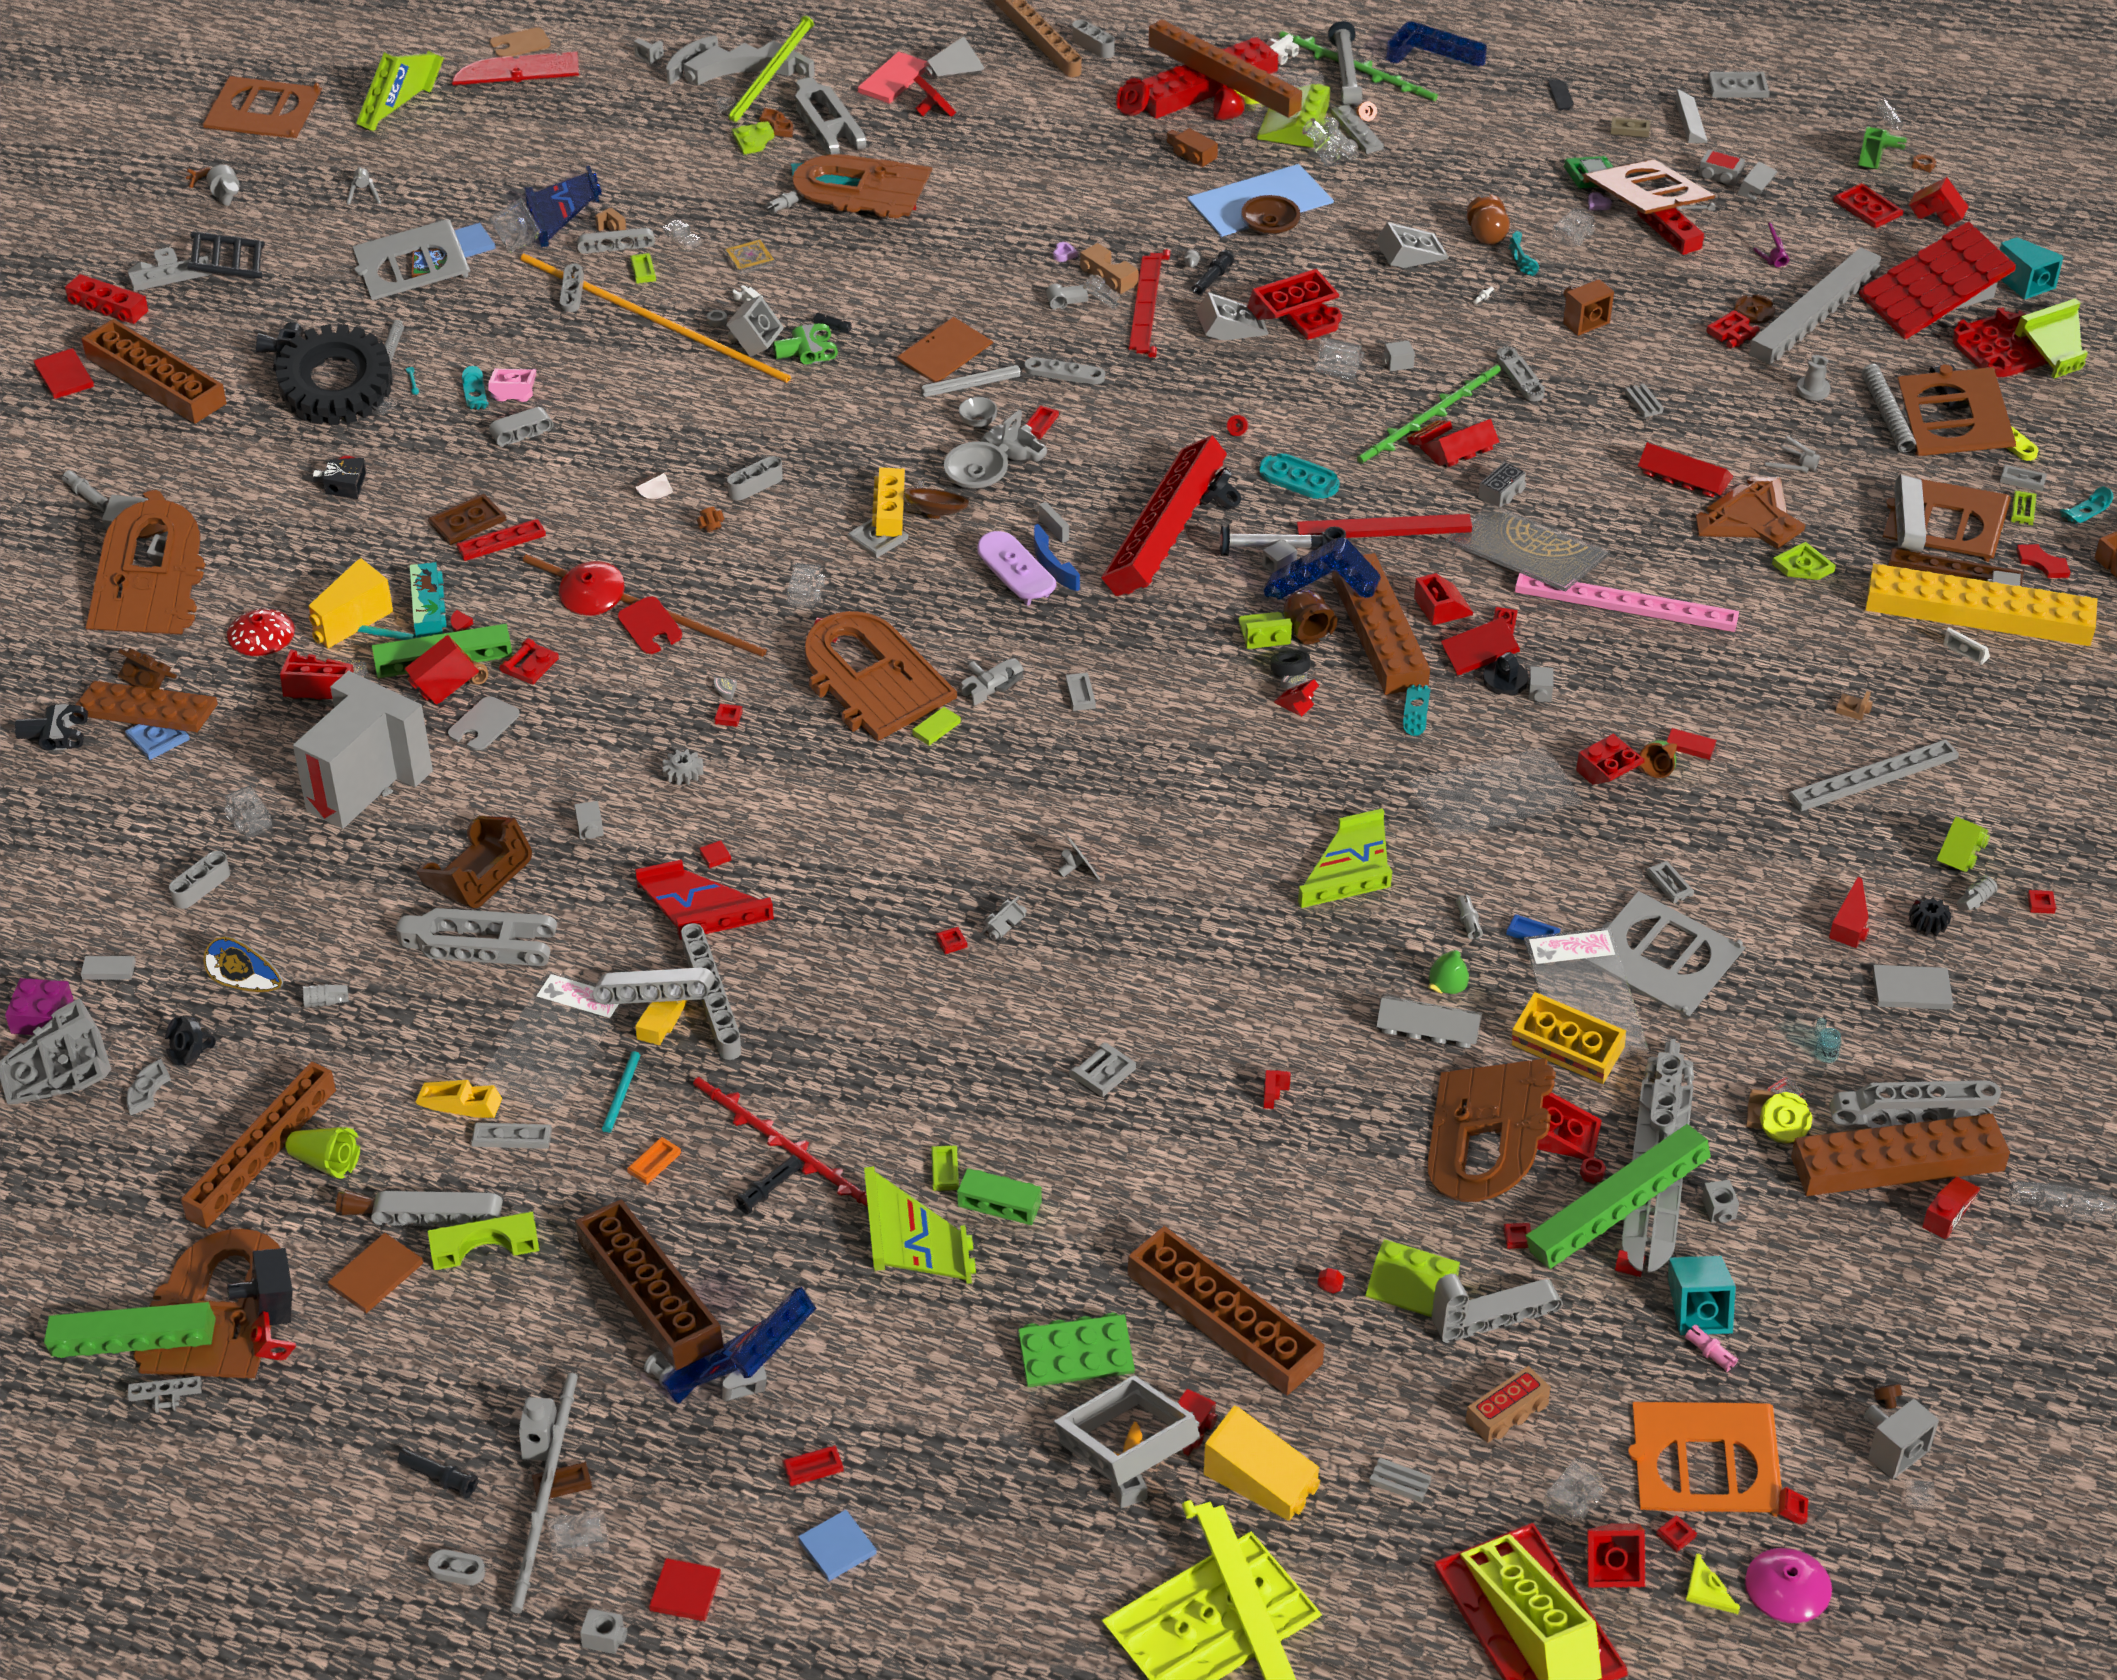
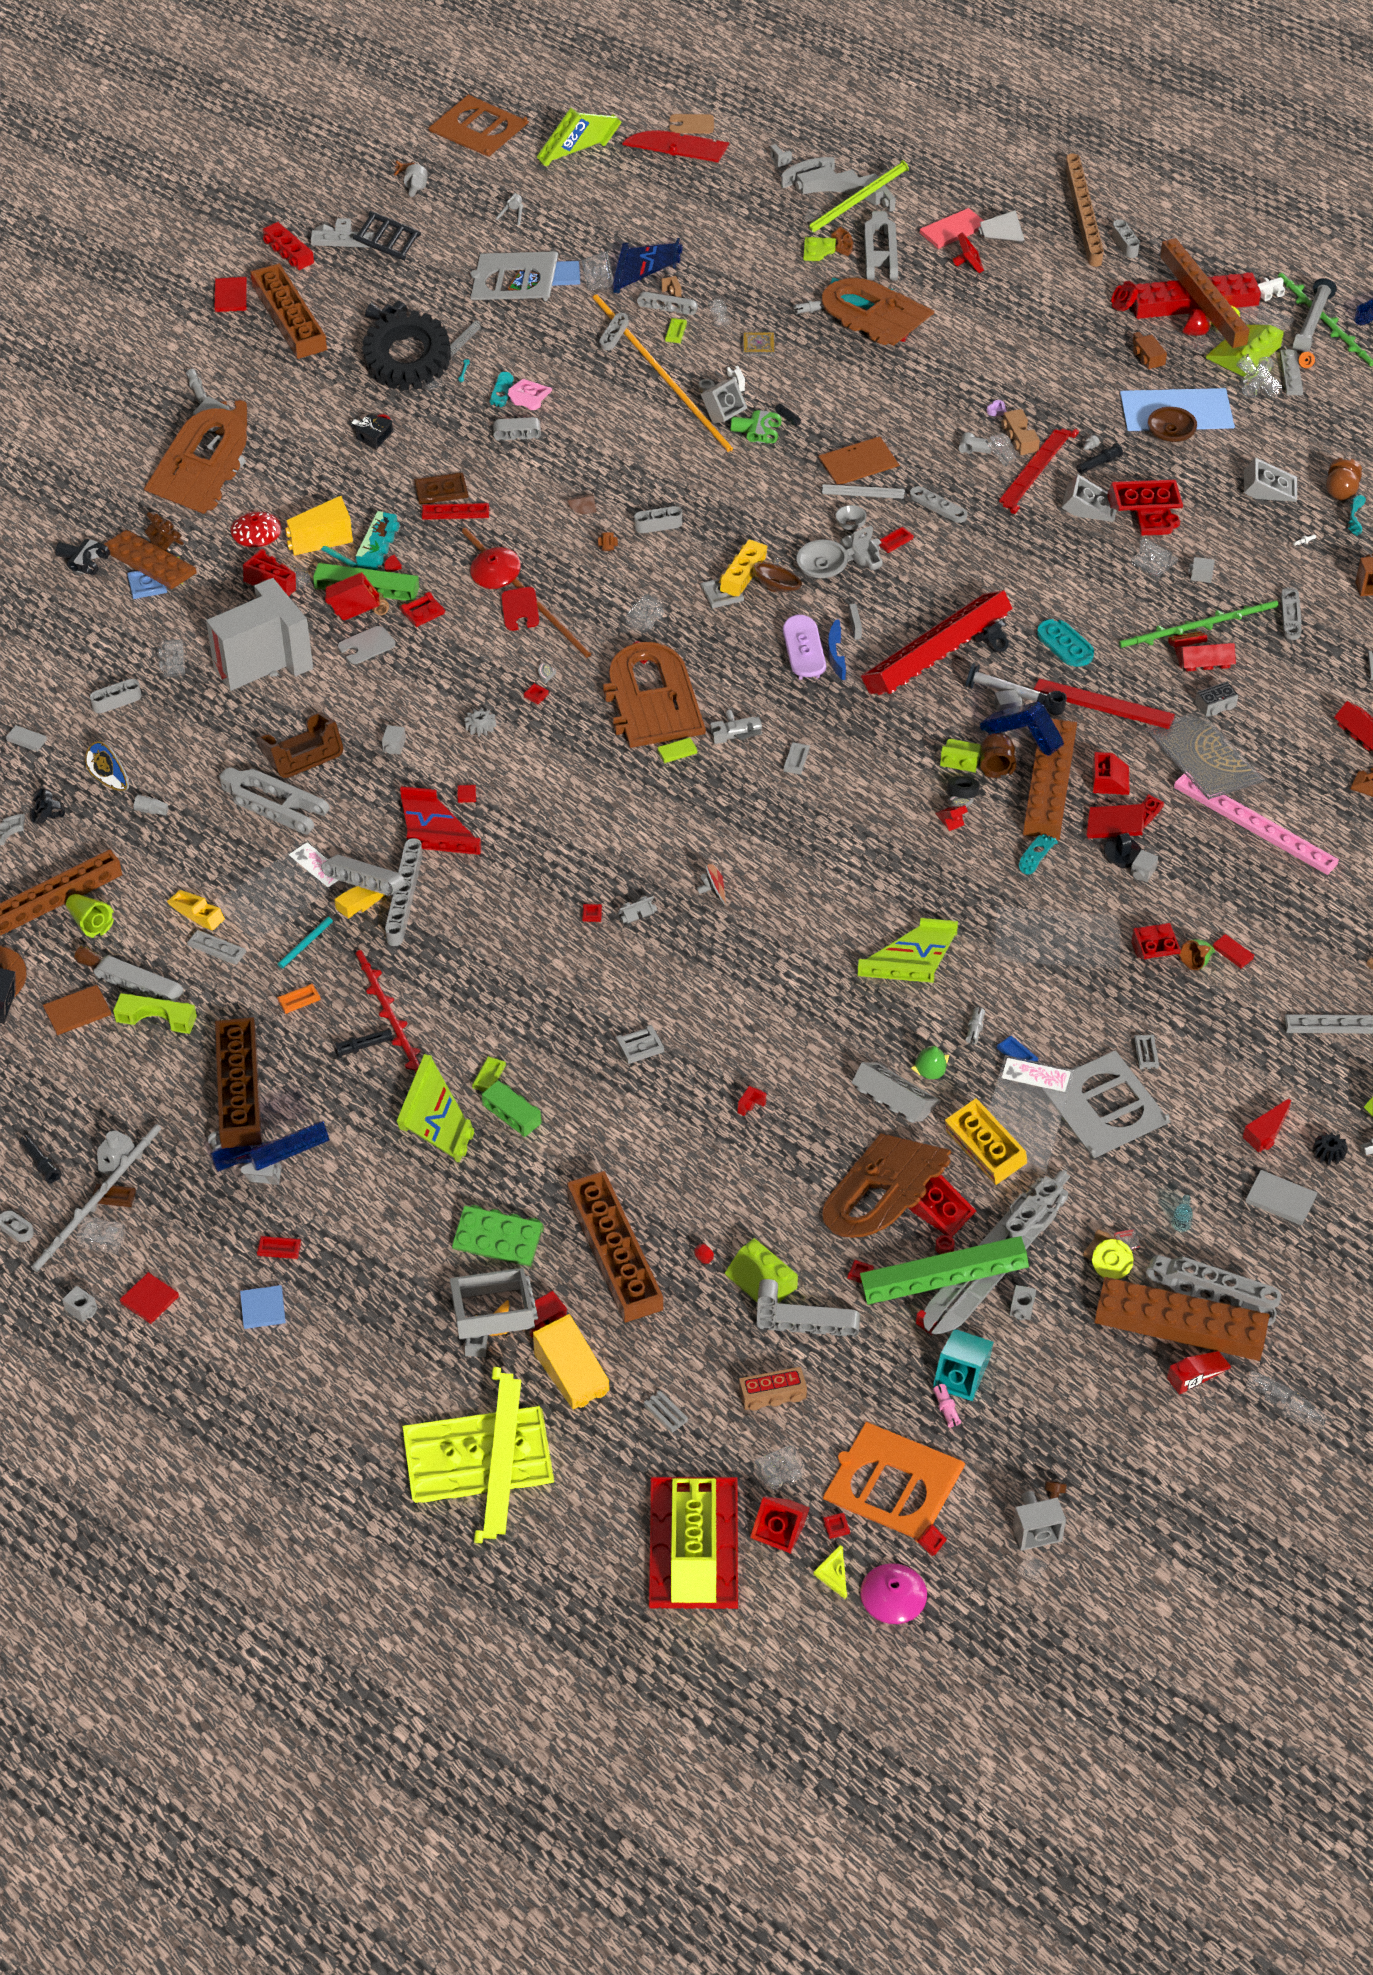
camera: 25 degrees right, 5 degrees up
(1232, 425) = (1041, 587): red tile -> none

